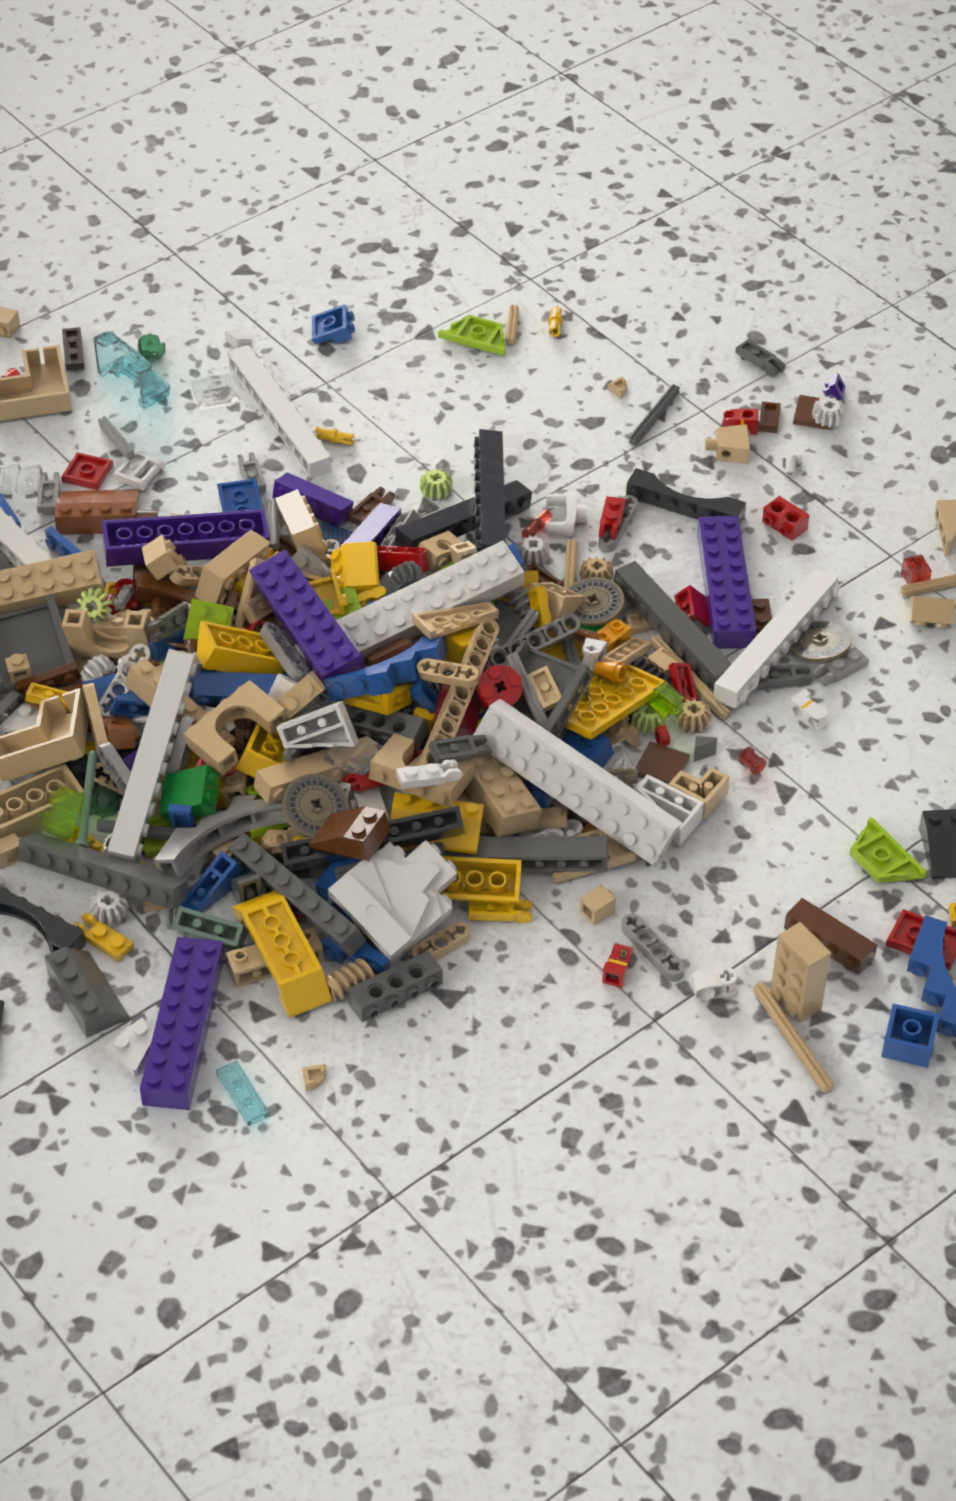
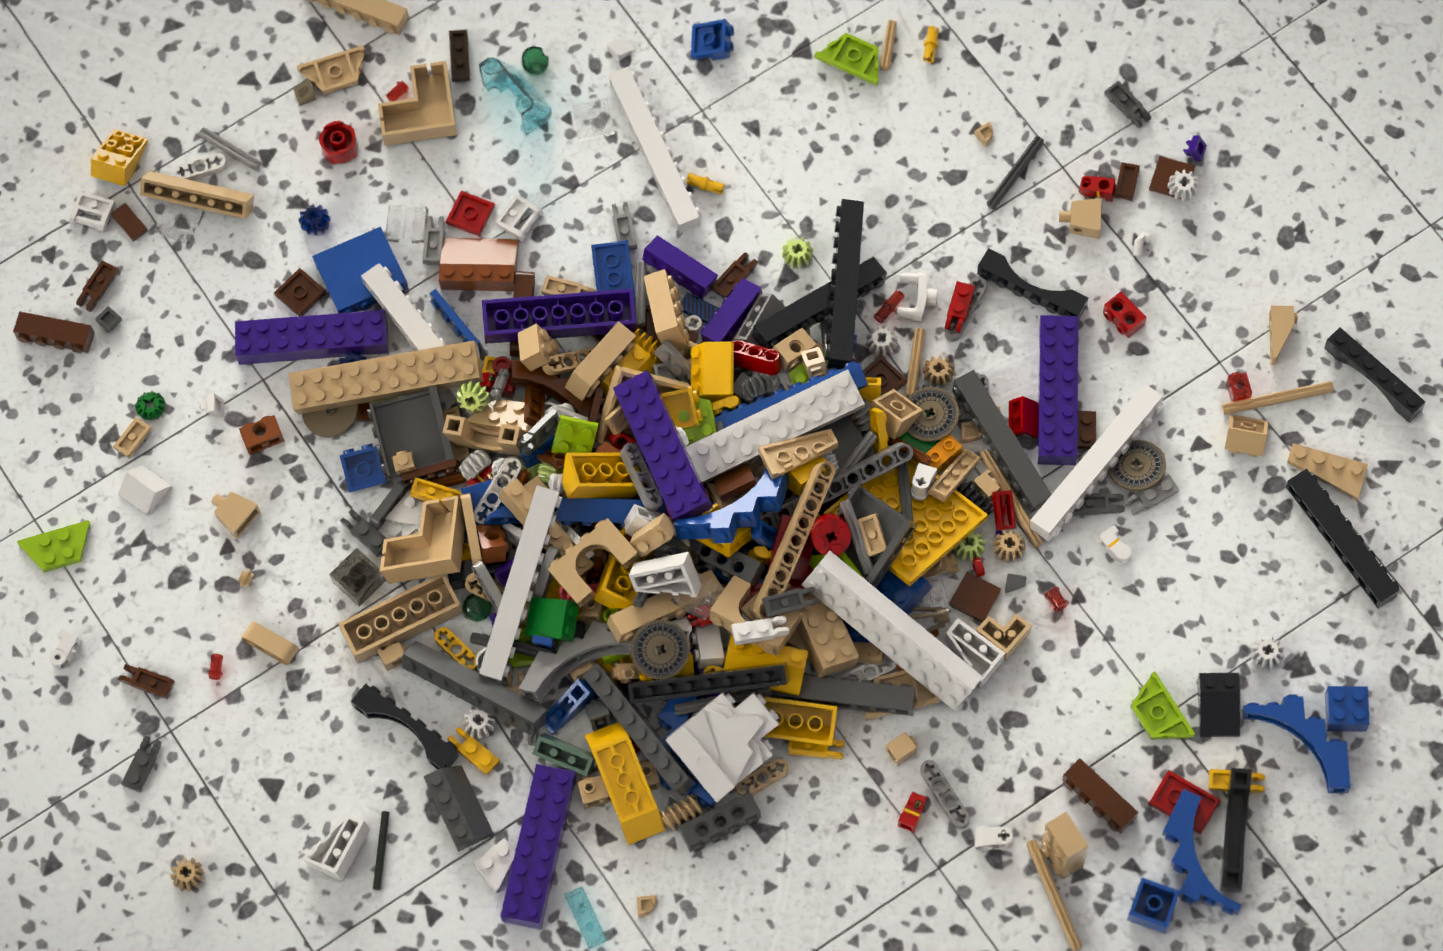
camera: 10 degrees right, 20 degrees up
(63, 812) = (441, 627): clear neon green brick -> none
(86, 804) = (462, 615): sand green bar -> none
(116, 437) = (498, 176): light grey axle -> none
(353, 832) = (688, 686): reddish brown slope -> none
(436, 670) = (781, 514): tan beam -> none
(612, 671) = (936, 504): light orange cone -> none
(665, 700) = (983, 536): clear neon green brick -> none

